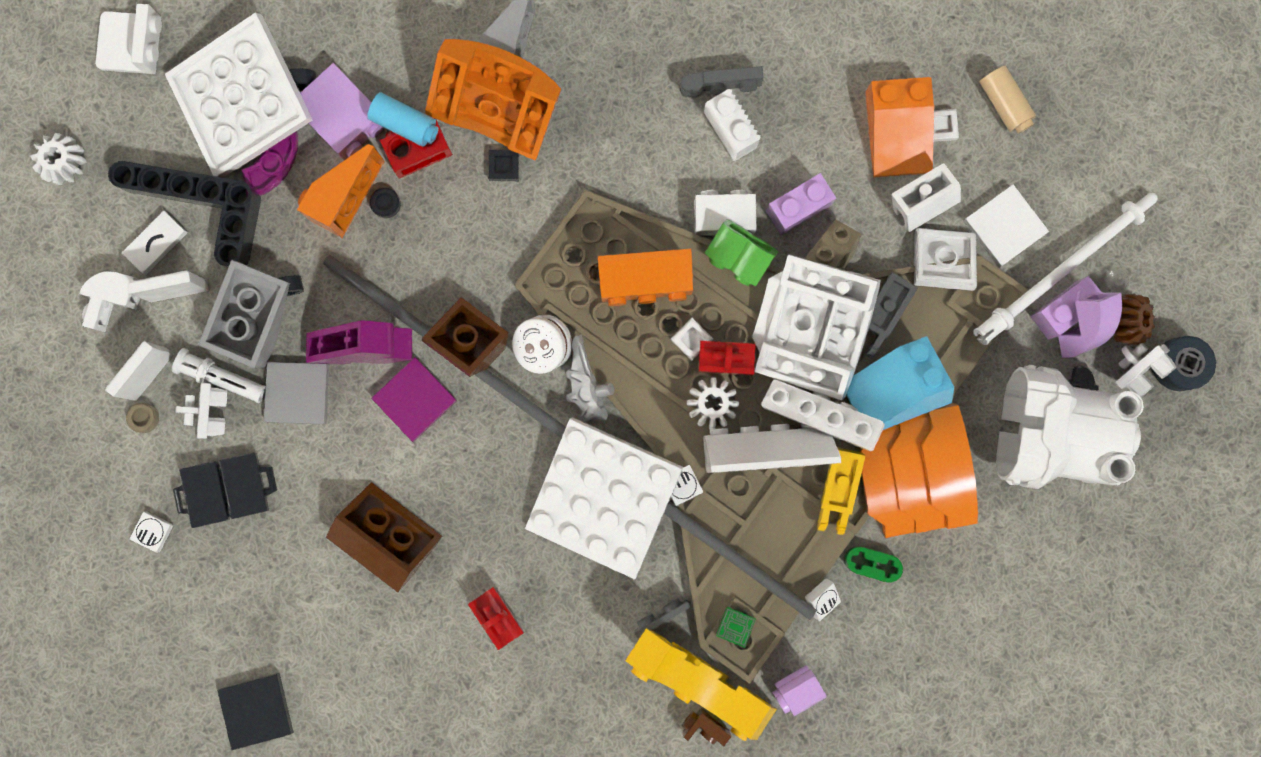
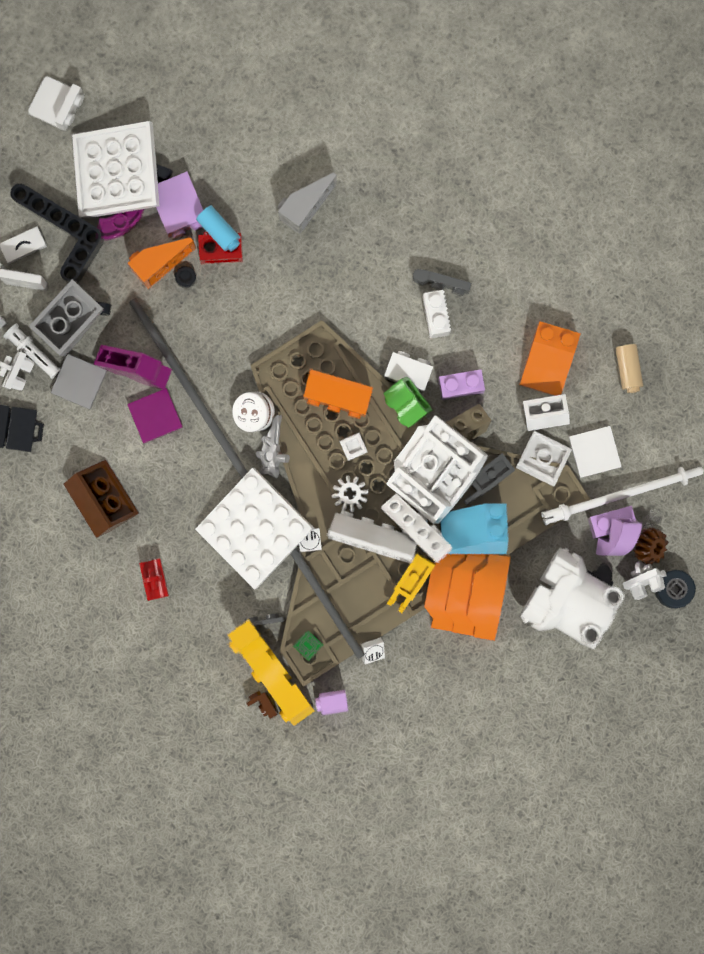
camera: 20 degrees right, 0 degrees up
(467, 338) = (205, 389): reddish brown slope -> none
(492, 94) = (284, 236): orange slope -> none
(503, 165) = (274, 282): black tile -> none
(727, 357) = (370, 467): red hips -> none
(871, 571) = (412, 645): green beam -> none
(945, 125) = (580, 368): white tile -> none

